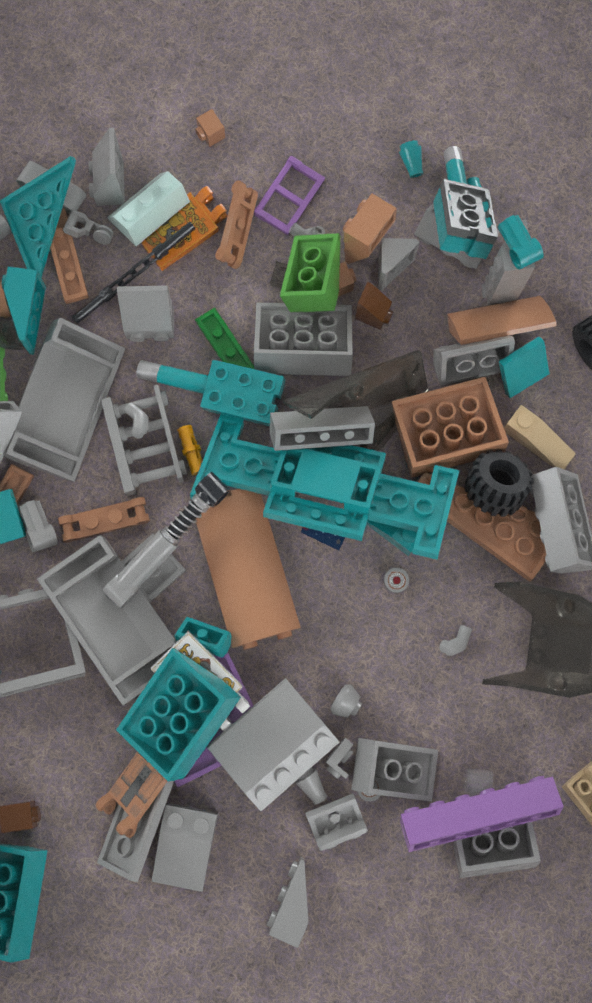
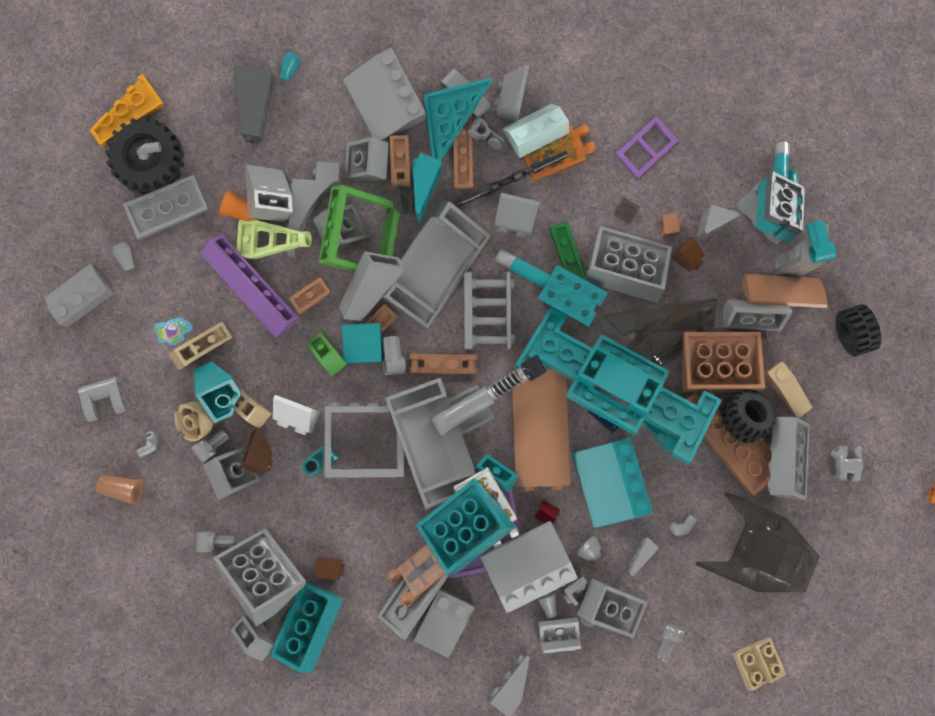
camera: 10 degrees right, 5 degrees up
(140, 421) = (490, 296): light grey arm -> none
(190, 448) = (521, 328): light orange pin -> none
(210, 128) = (599, 78): nougat plate -> none
(237, 225) = (601, 162): nougat plate -> none
(281, 669) = (546, 512): none -> dark red slope
(297, 230) = (653, 183): light grey arm -> none
(312, 273) = (650, 216): bright green slope -> none
(326, 429) = (641, 343): light grey brick -> none
(352, 610) = (612, 482): none -> teal slope
(367, 228) = (703, 194): nougat slope -> none
(396, 580) = (650, 468): light grey tile -> none
(412, 158) = (750, 142): teal cone -> none
(416, 687) = (643, 554): none -> light grey slope
(480, 813) = (668, 659): medium lavender brick -> none
(497, 851) = (672, 682): light grey slope -> none
(524, 367) = (792, 332): teal tile -> none

